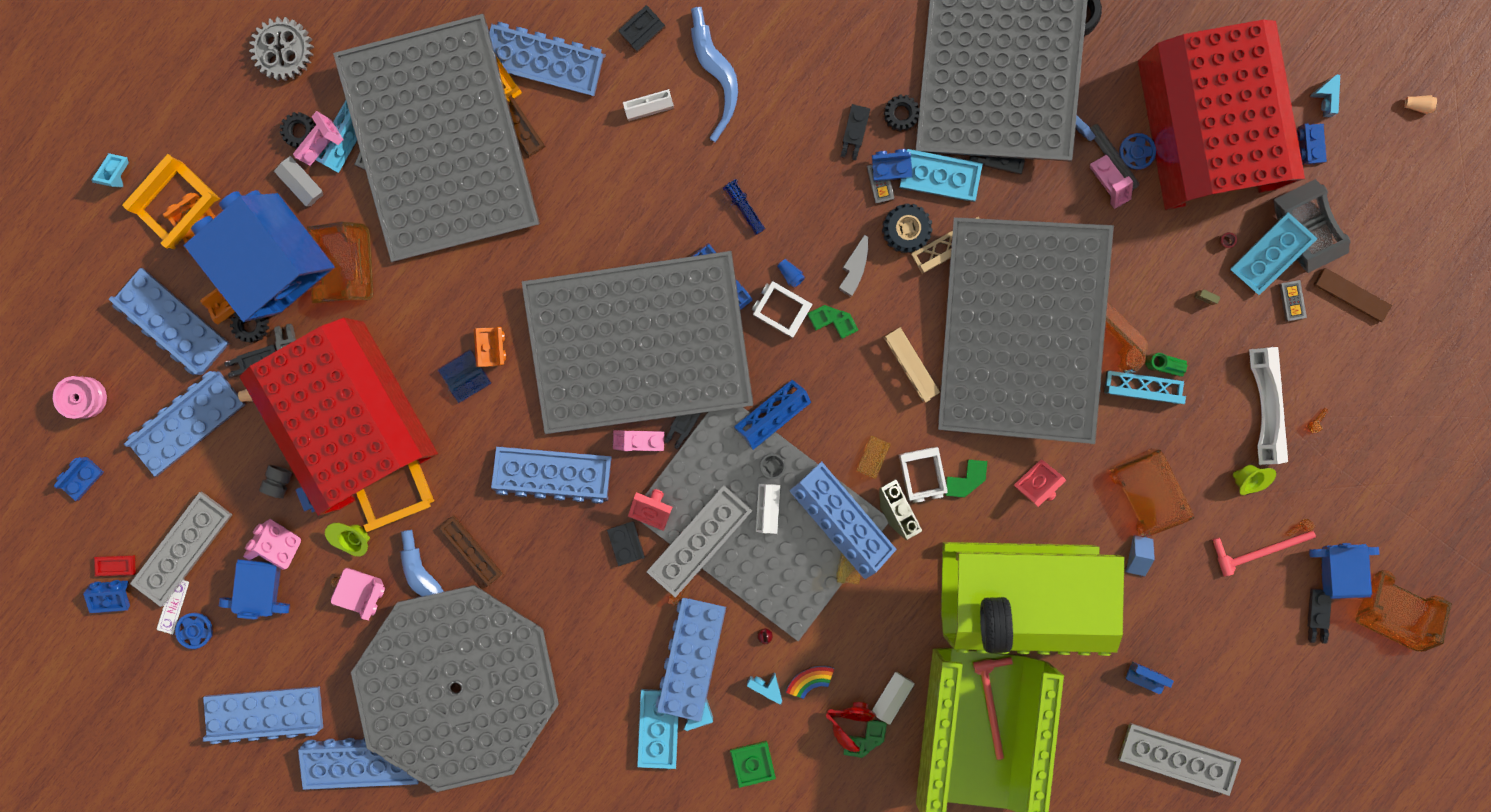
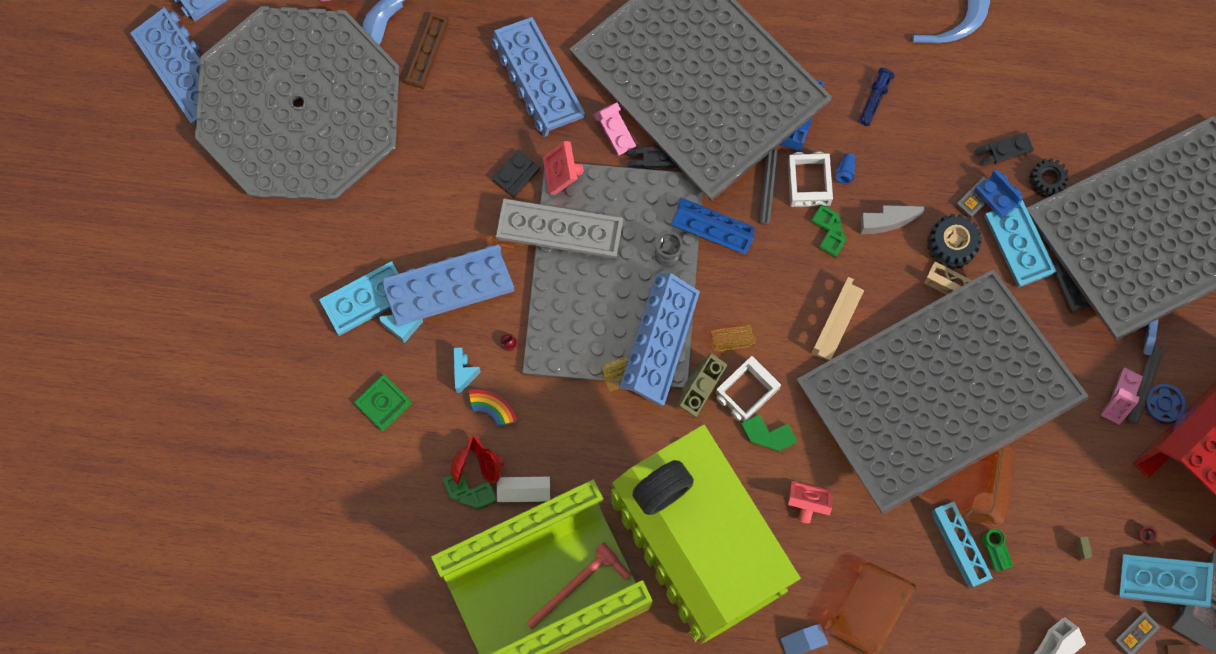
camera: 55 degrees right, 15 degrees down
(767, 508) = (627, 270): white piece -> none
(768, 348) = (768, 186): none -> dark grey axle

